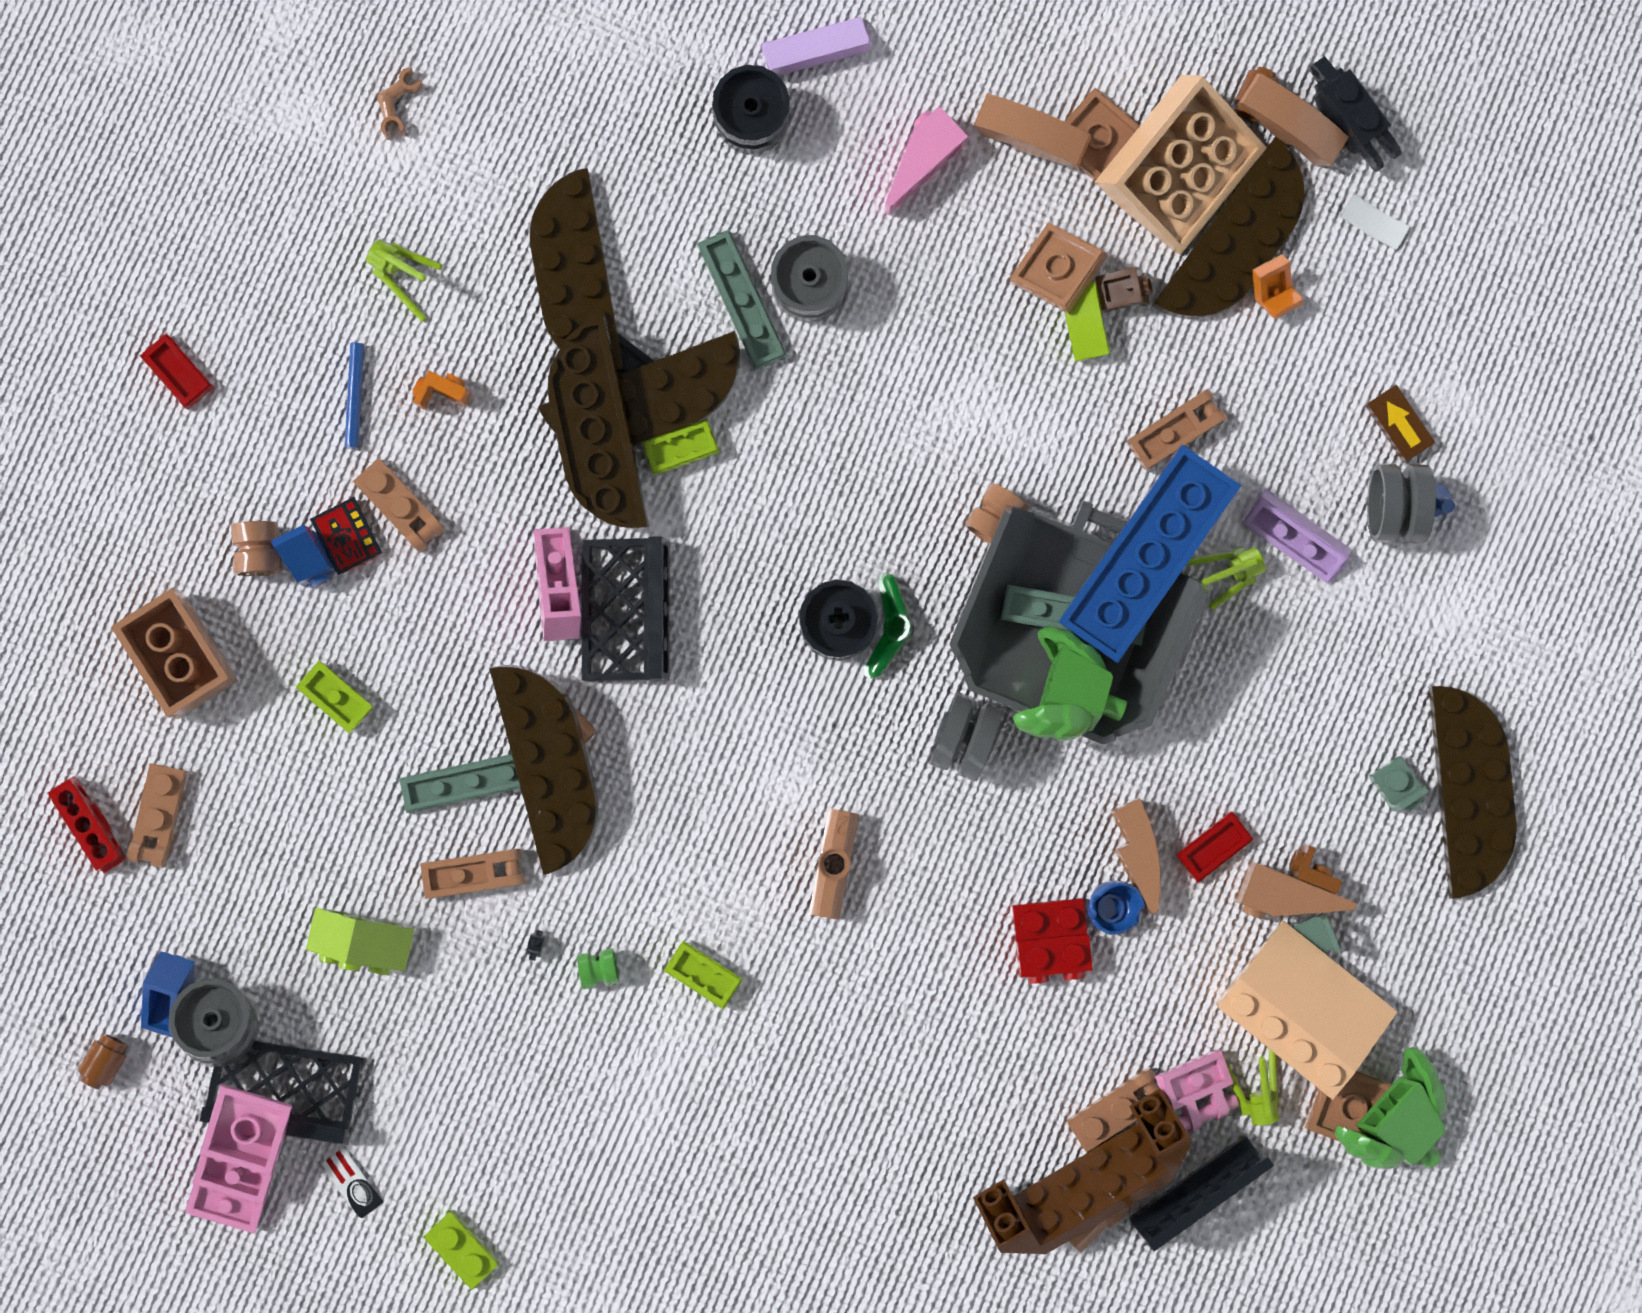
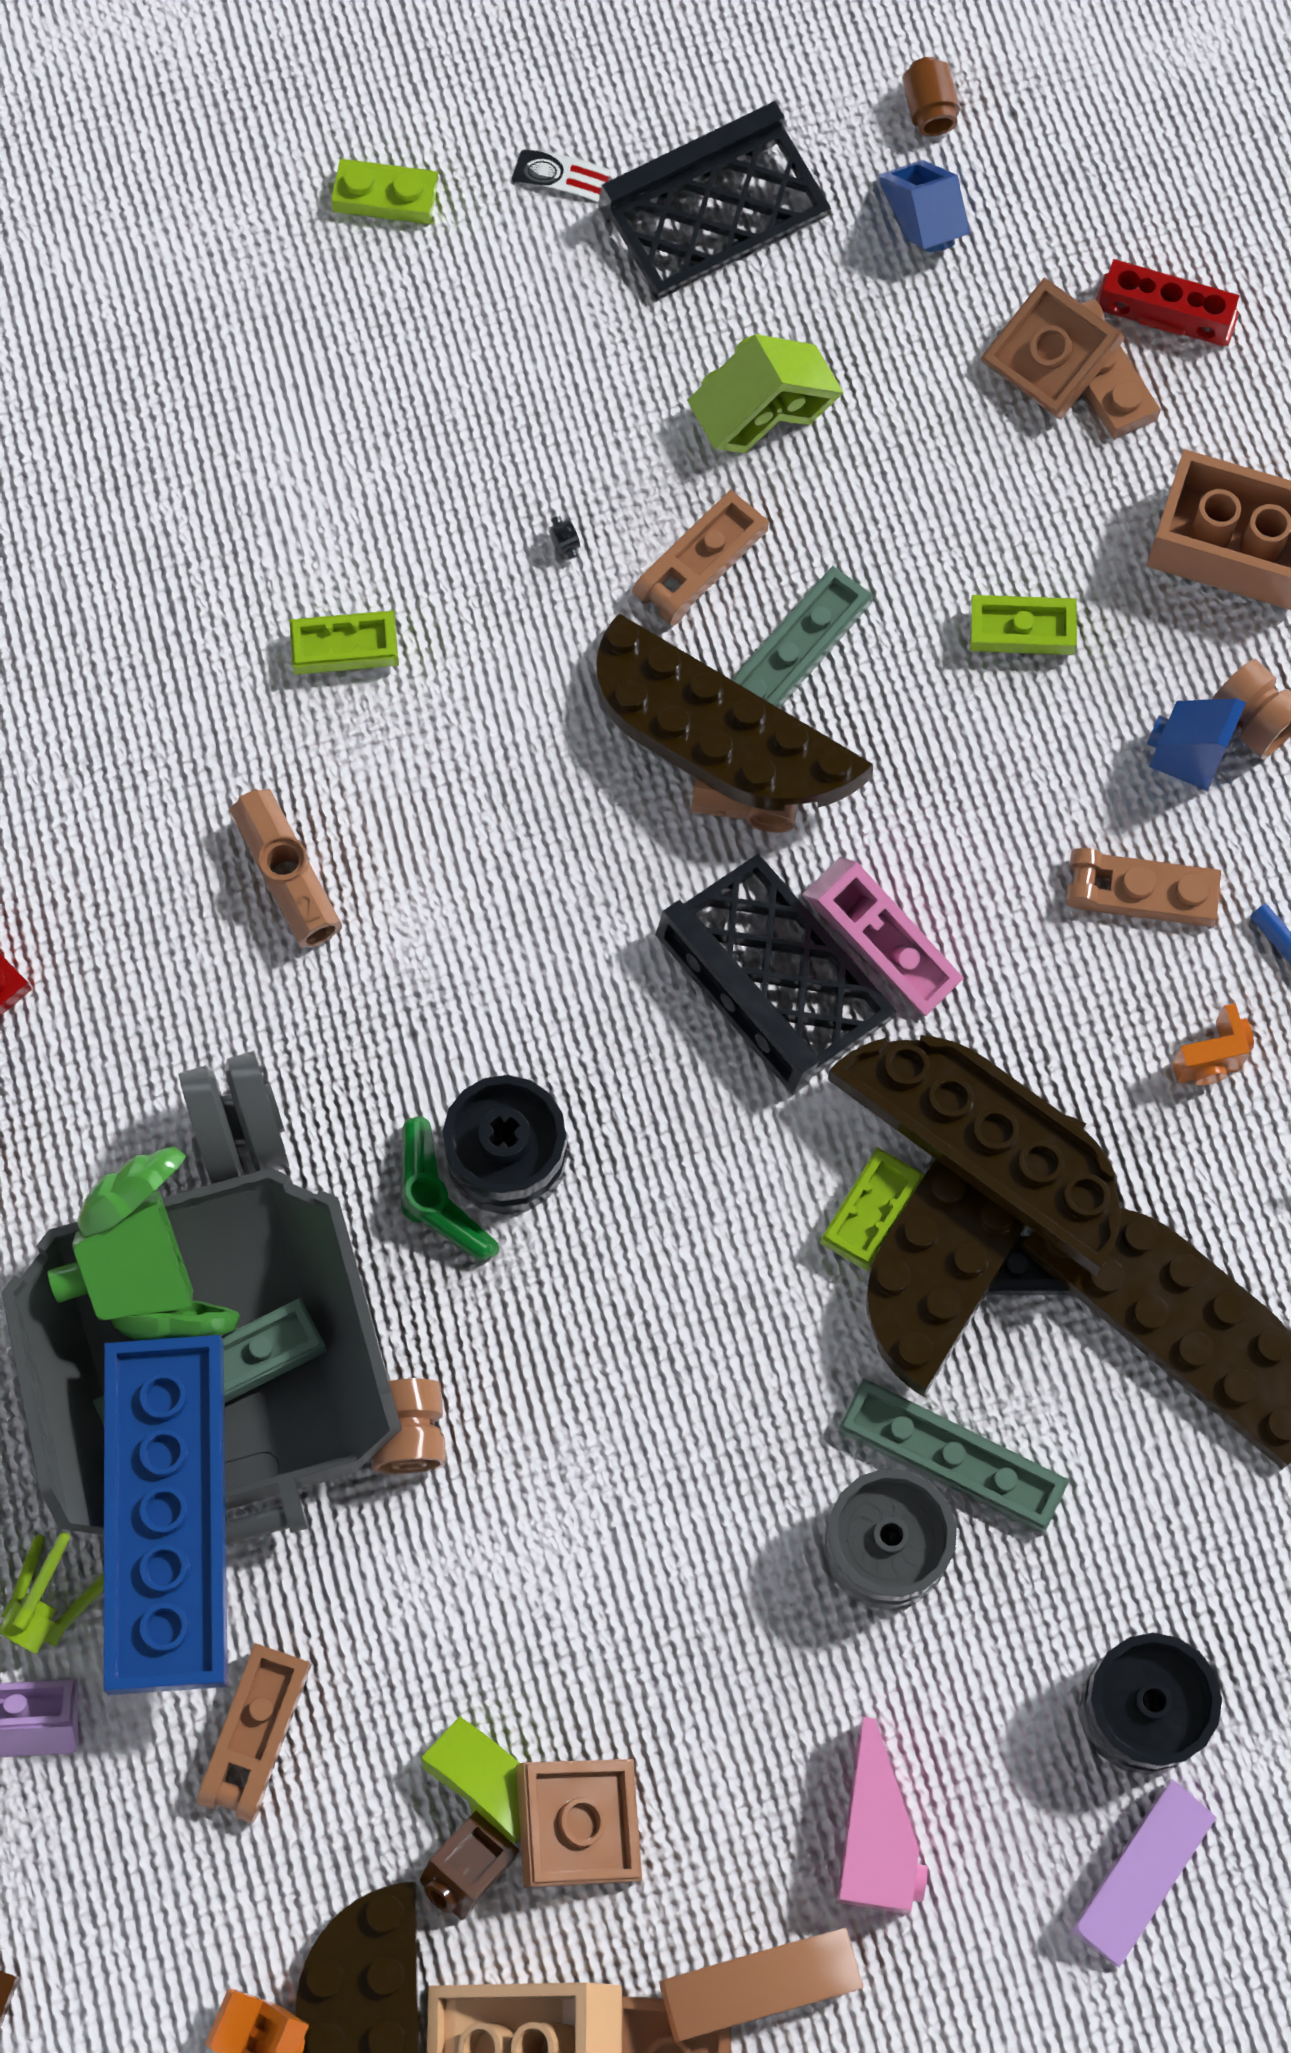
camera: 145 degrees right, 15 degrees down
(177, 844) = (1052, 348): none -> nougat tile
(218, 1004) = (847, 200): dark grey wheel -> none
(238, 1158) = (700, 95): bright pink slope -> none
(346, 536) = (1172, 807): piece -> none
(598, 968) = (471, 560): bright green wheel -> none

